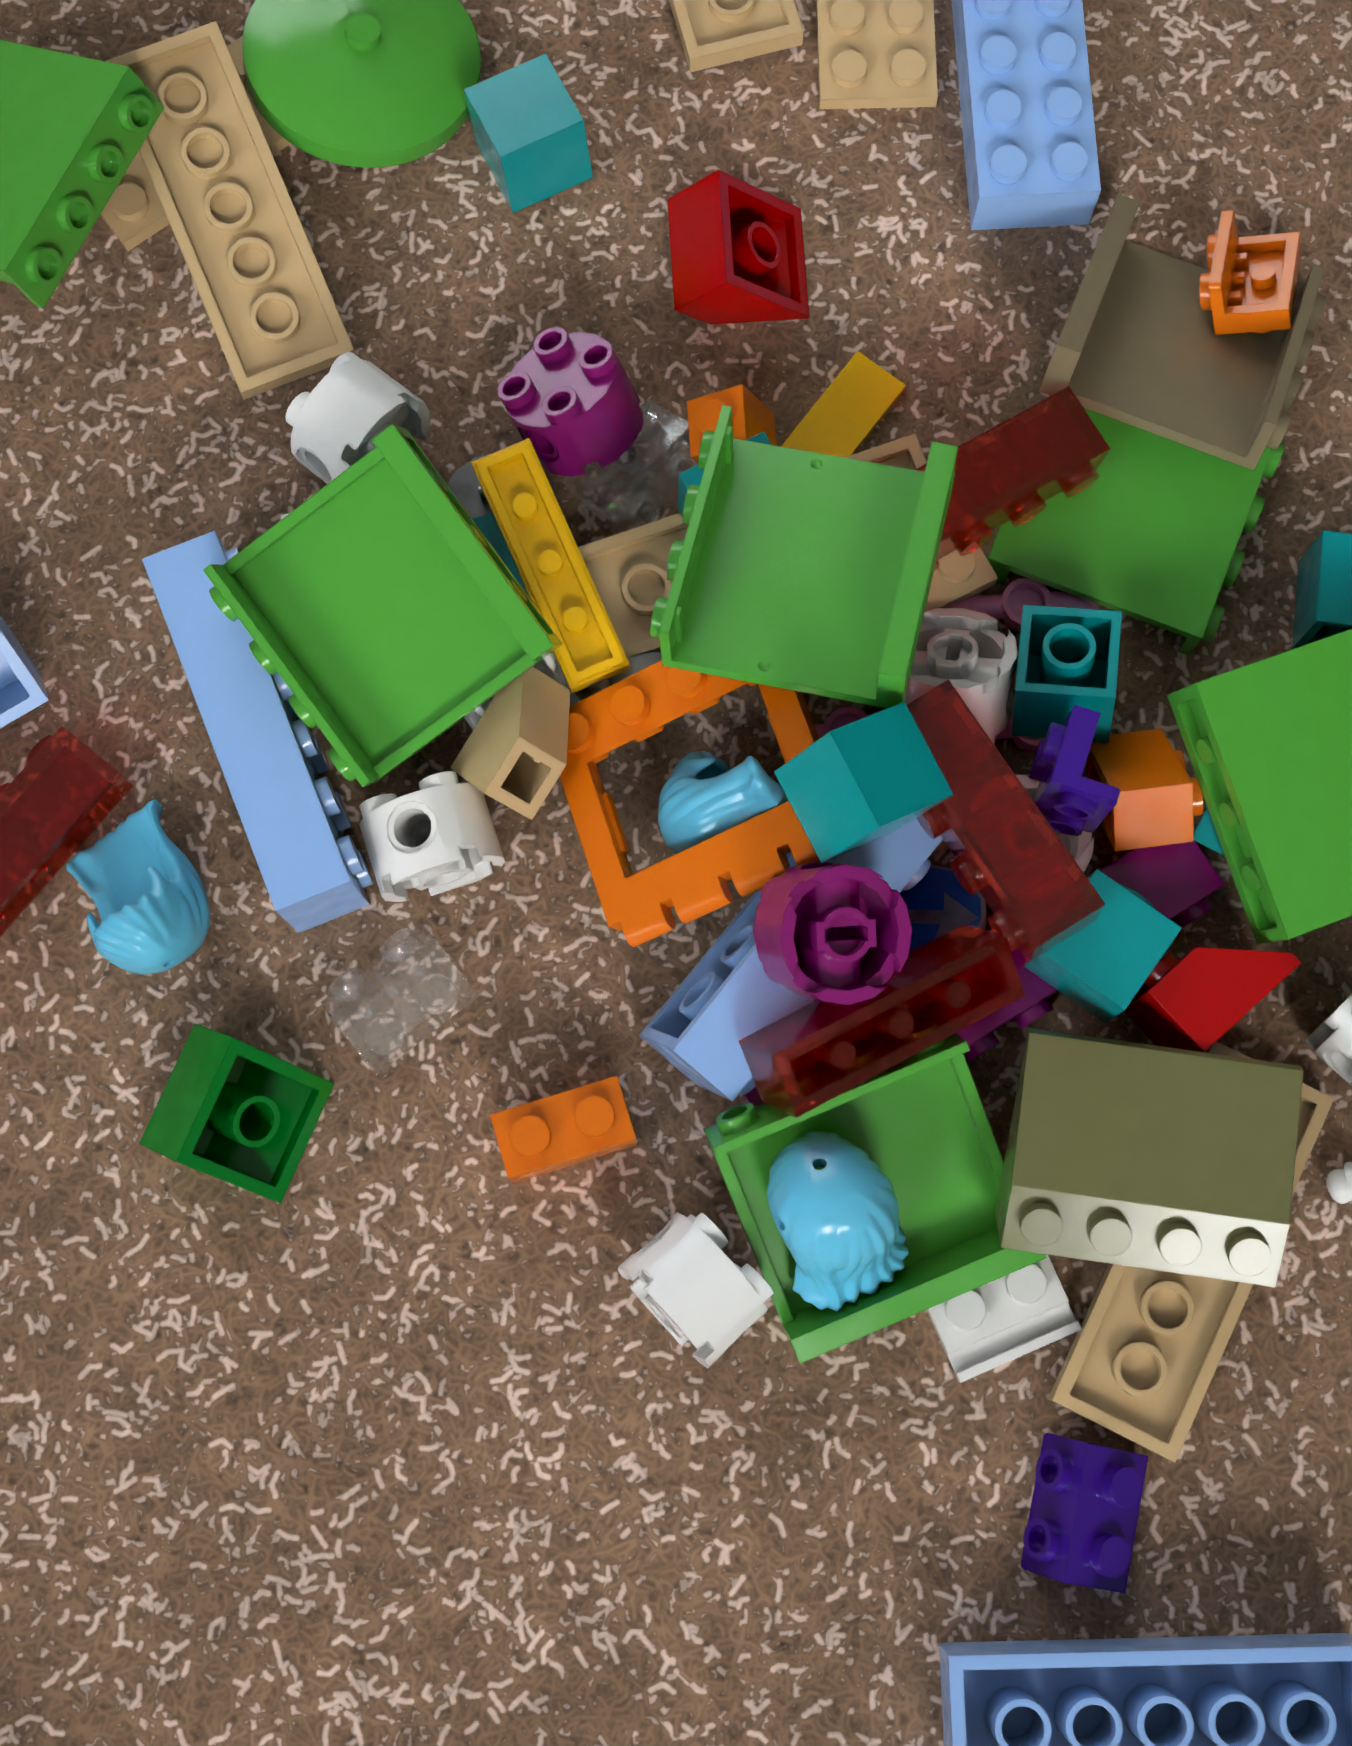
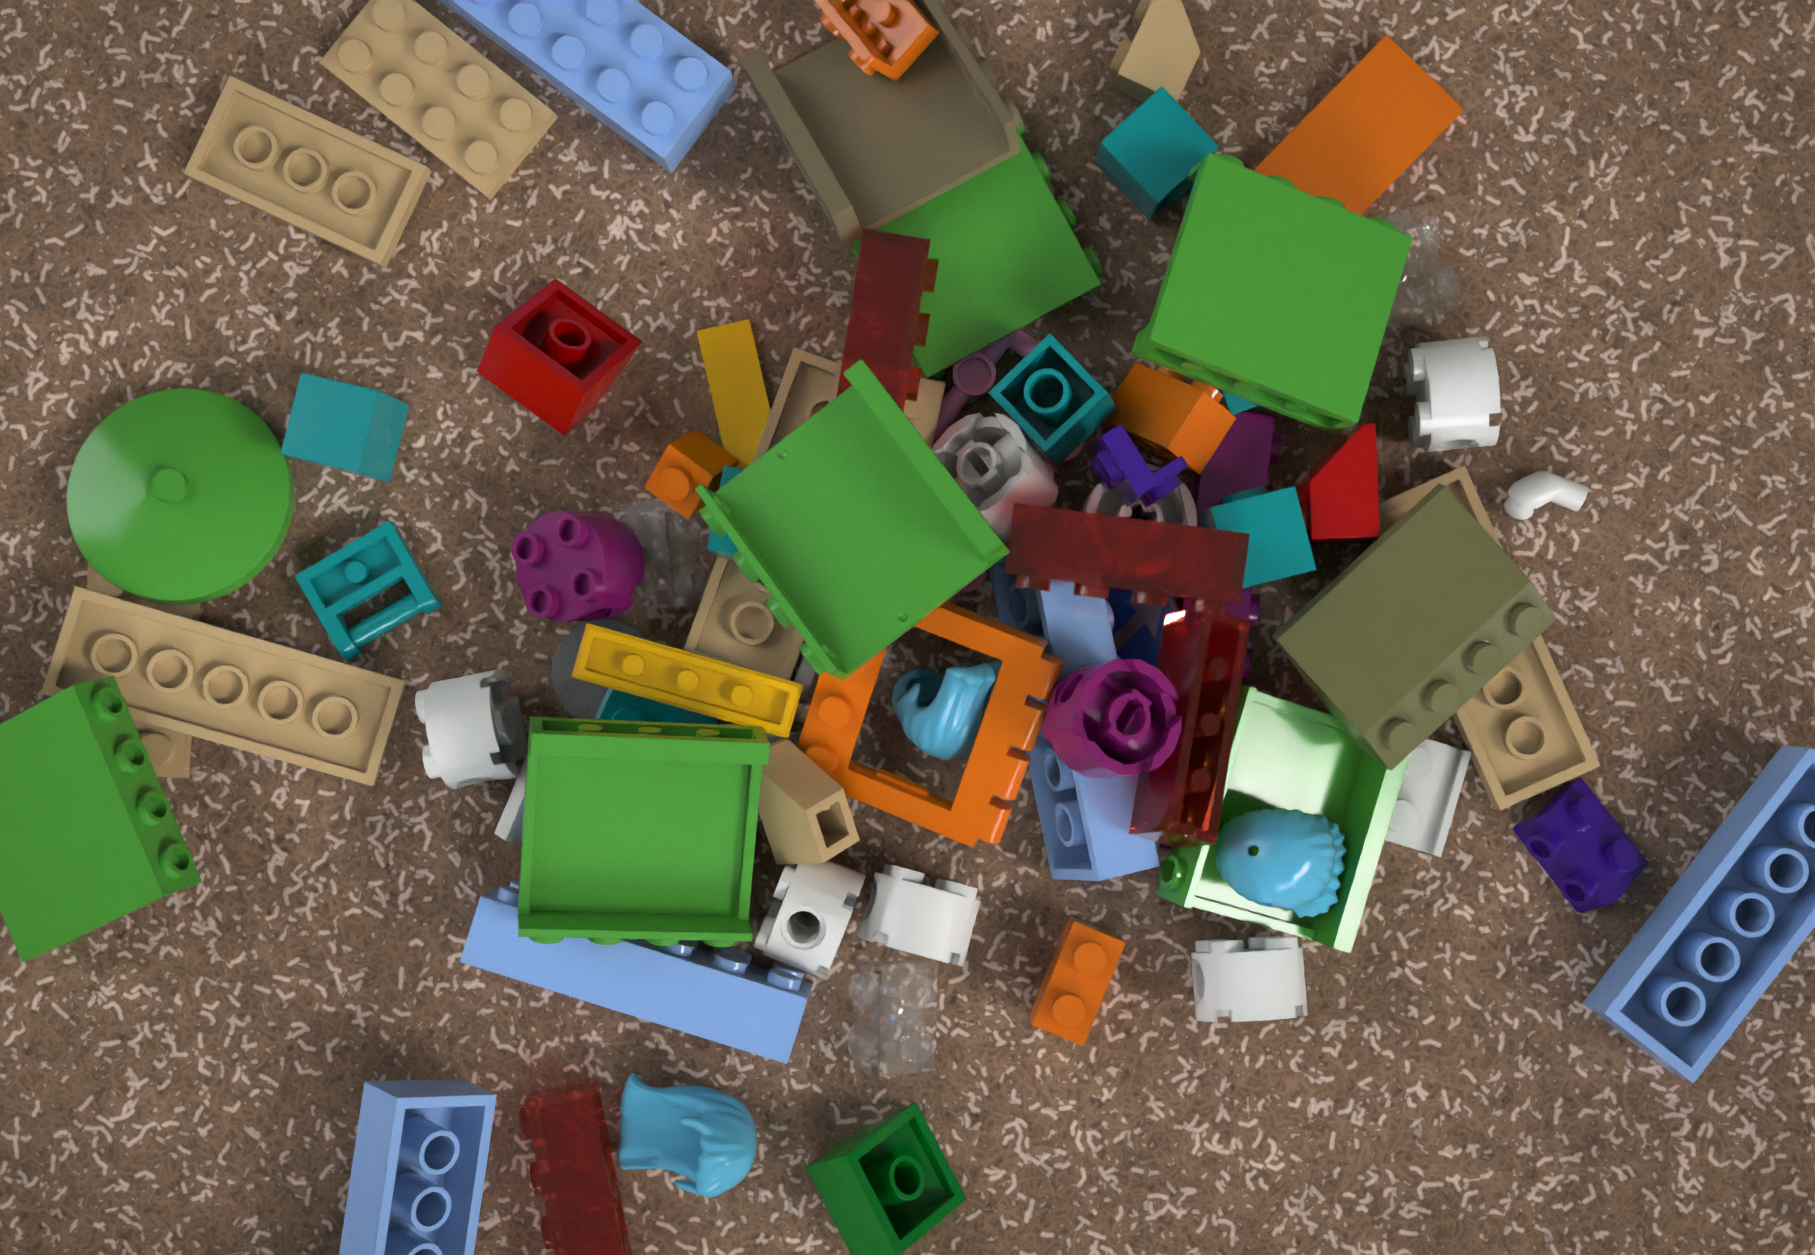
camera: 50 degrees left, 10 degrees up
(414, 246) = (360, 574): none -> teal plate
(508, 936) = (920, 917): none -> white brick
(863, 782) = (1042, 622): teal head -> none

